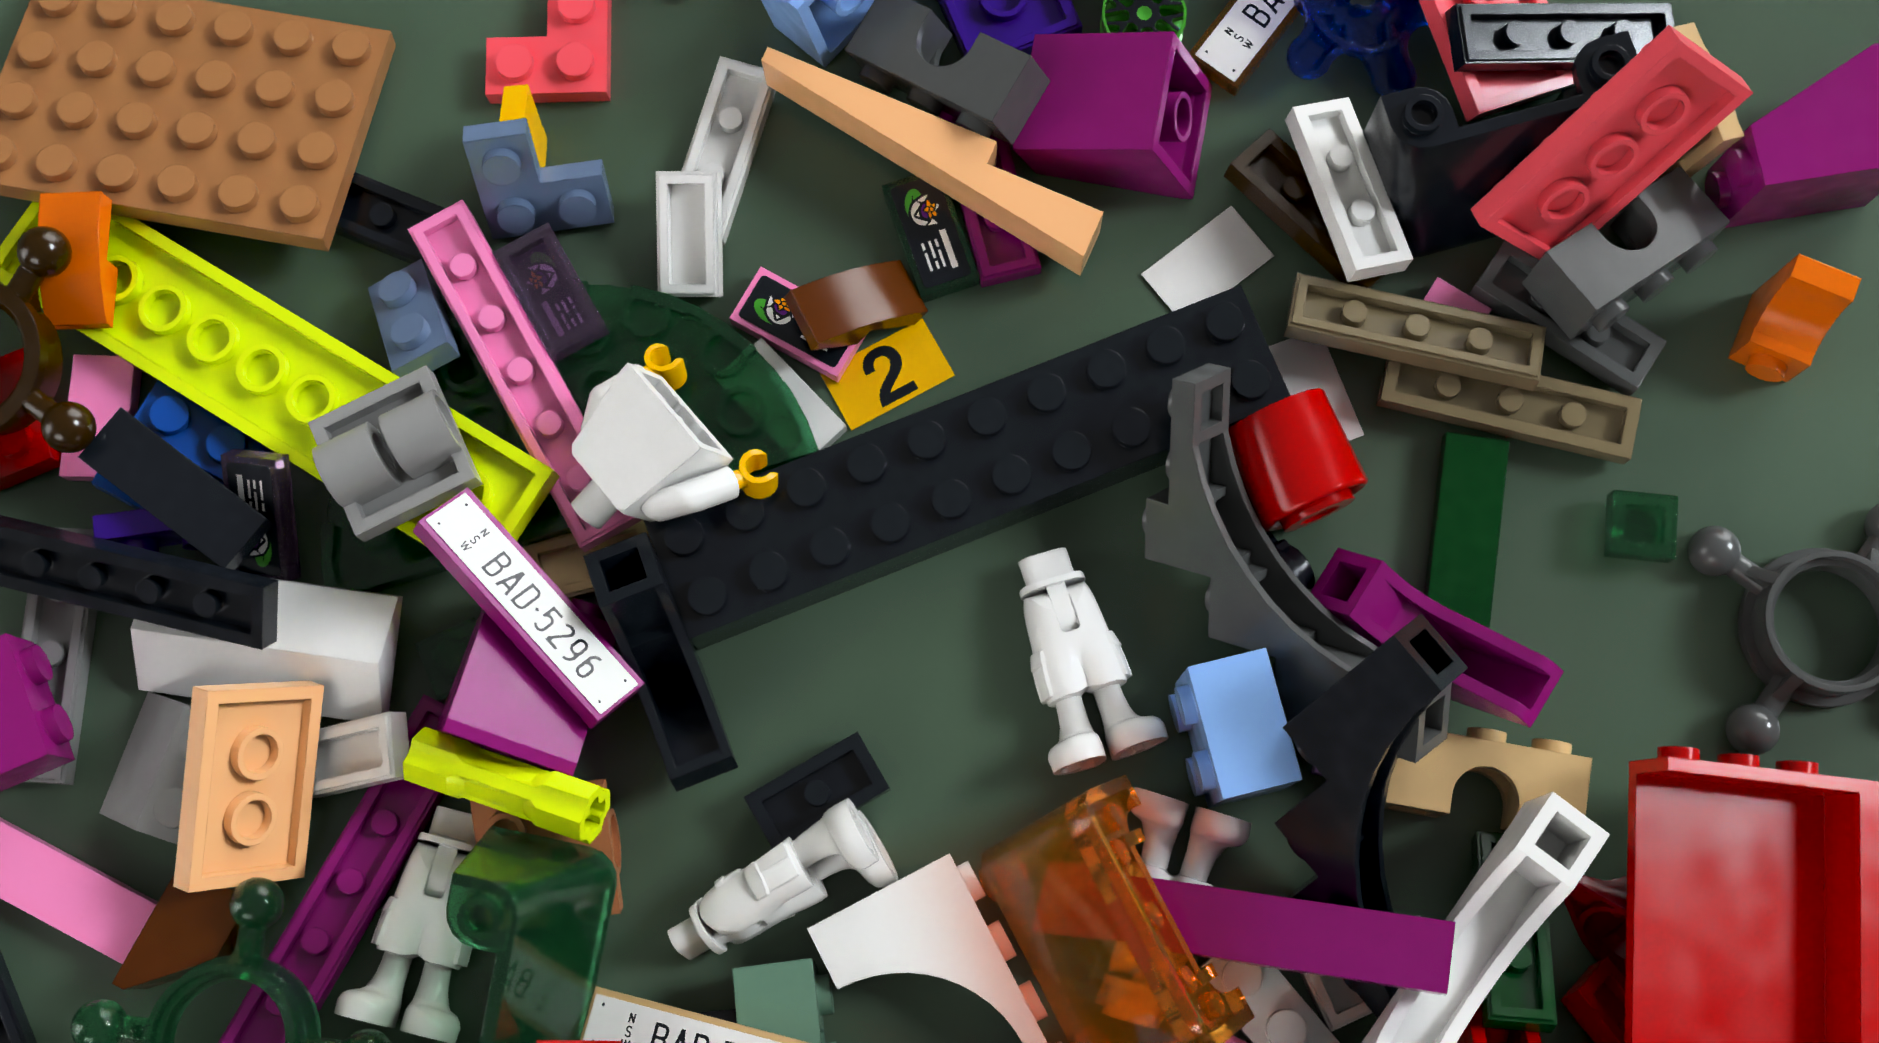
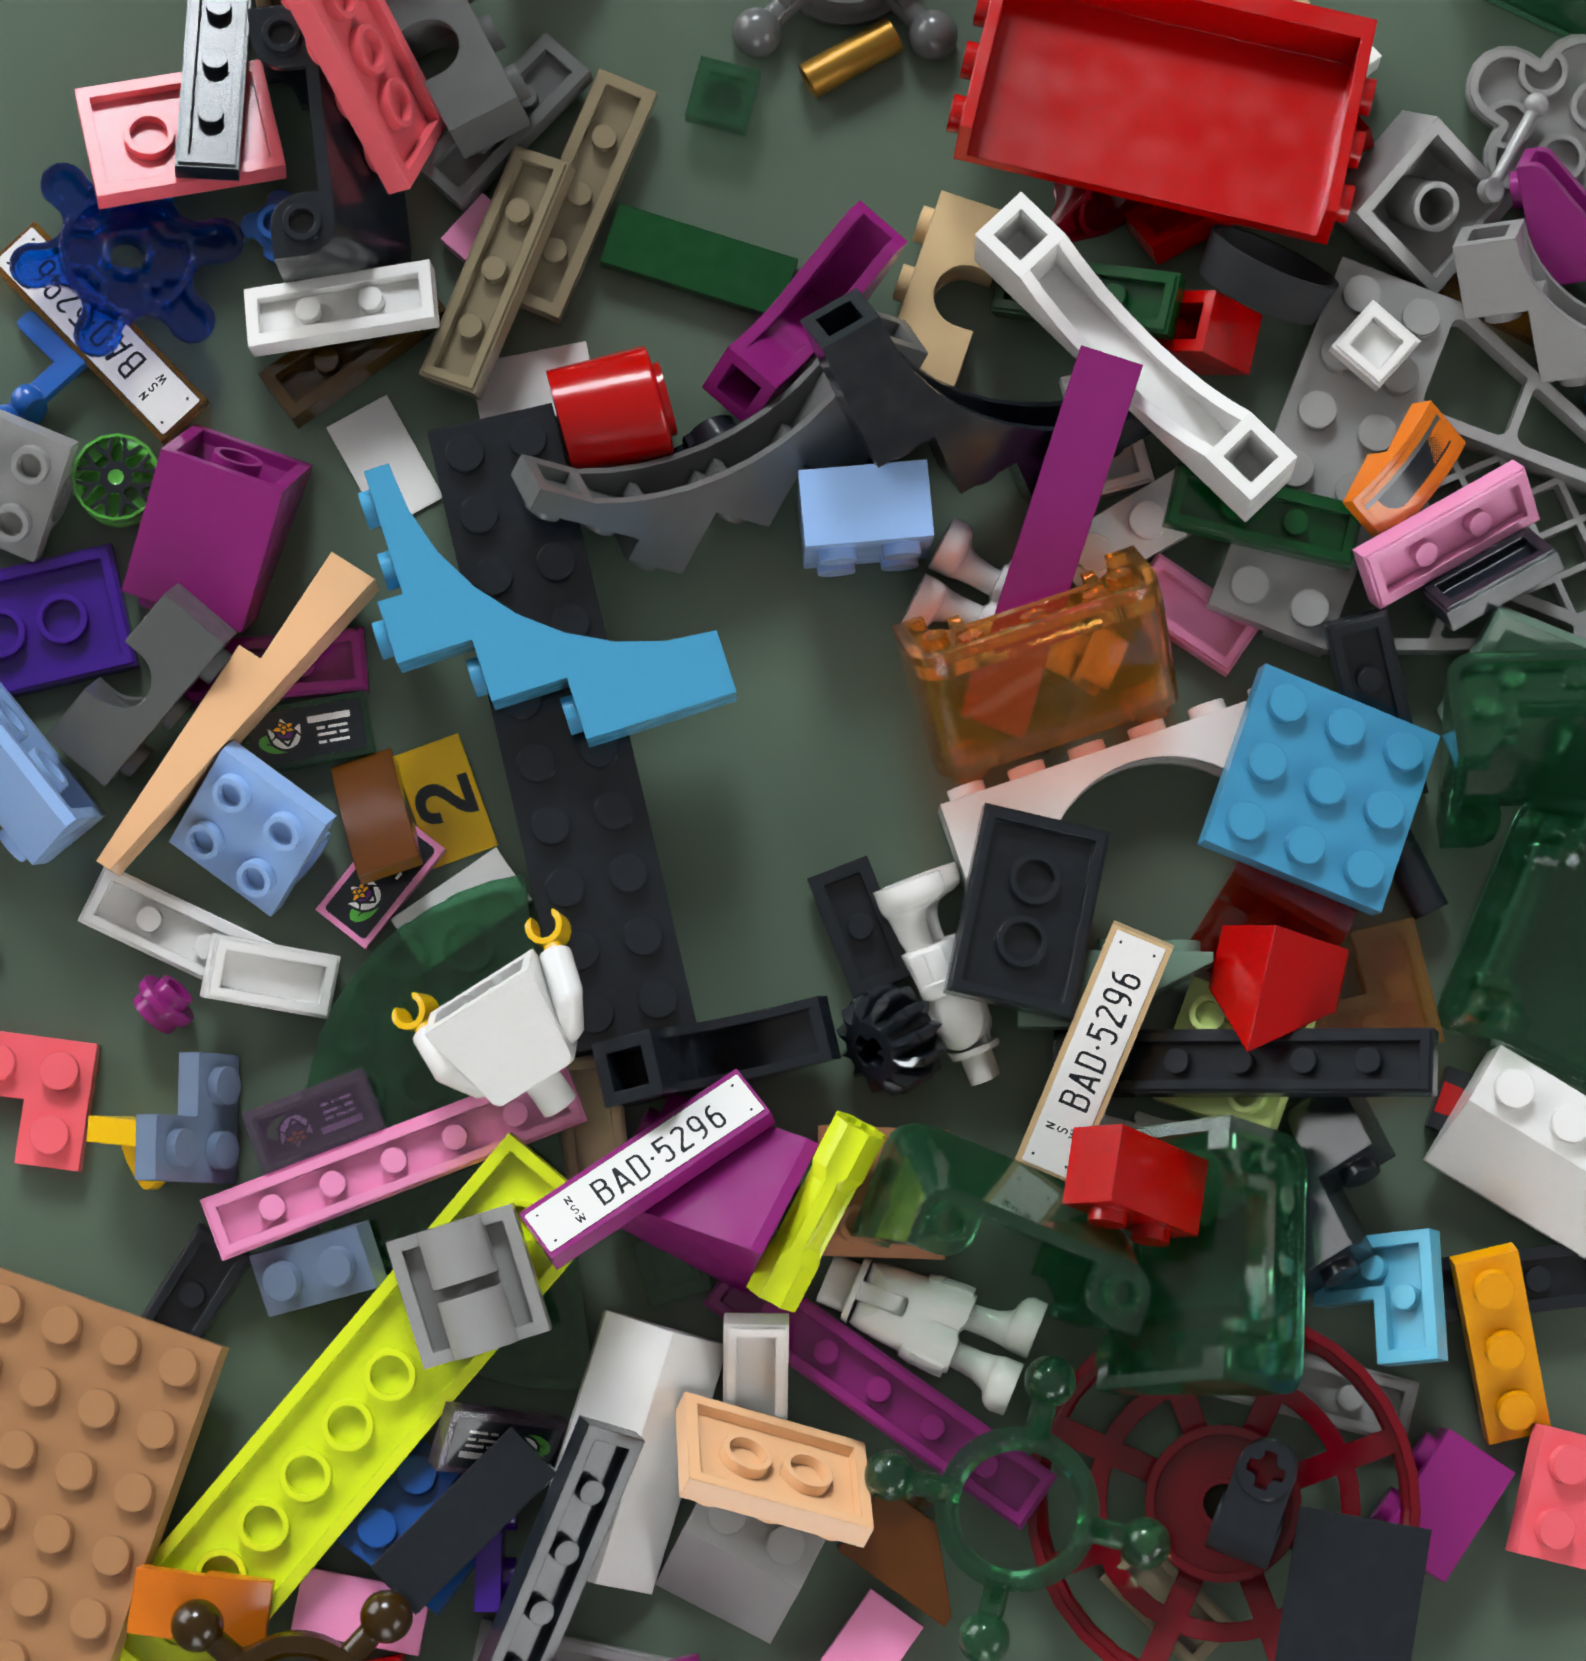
camera: 90 degrees left, 5 degrees up
(651, 143) = (164, 1003): none -> magenta plate
(702, 840) = (891, 1039): none -> black gear
(827, 194) = (253, 828): none -> light blue plate
(847, 960) = (1027, 912): none -> black tile
(1055, 319) = (441, 615): none -> dark azure arch
(1078, 656) = (768, 648): white piece -> none
(1709, 649) = (850, 58): none -> pearl gold axle

